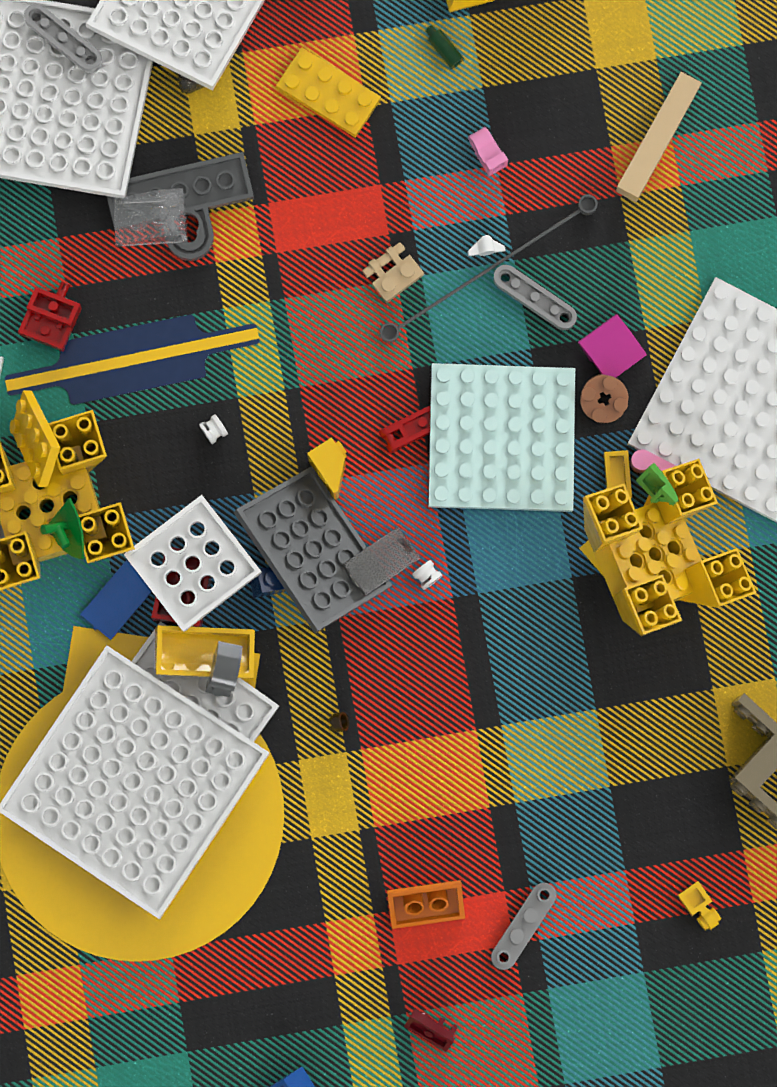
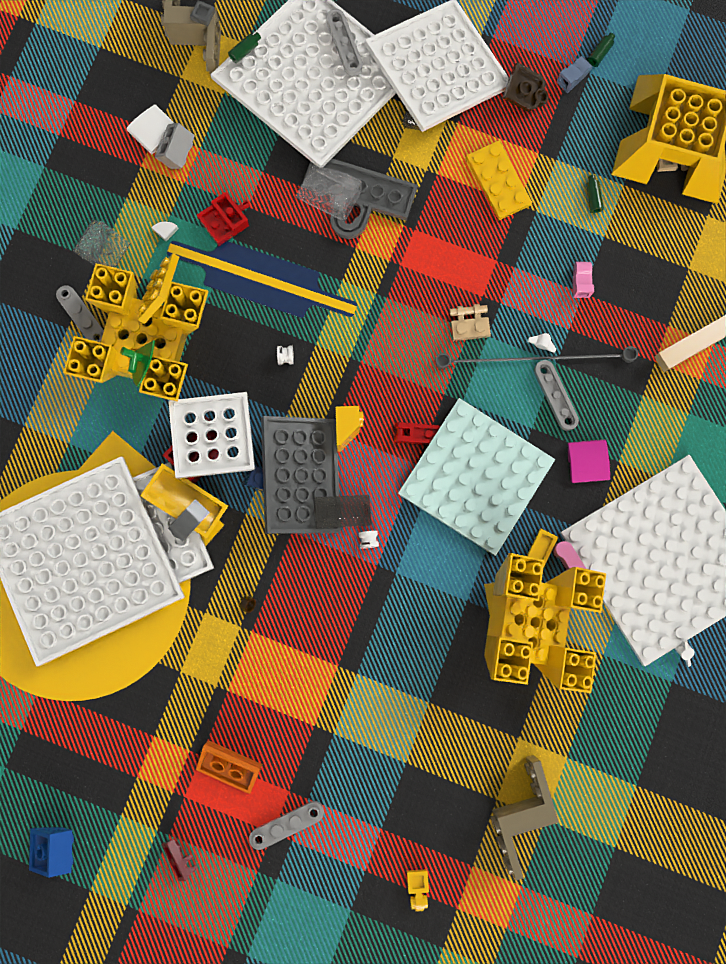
camera: 30 degrees right, 0 degrees up
(117, 601) = (148, 432): blue piece -> none
(591, 393) = (556, 483): nougat plate -> none
(657, 485) = (566, 575): bright green slope -> none

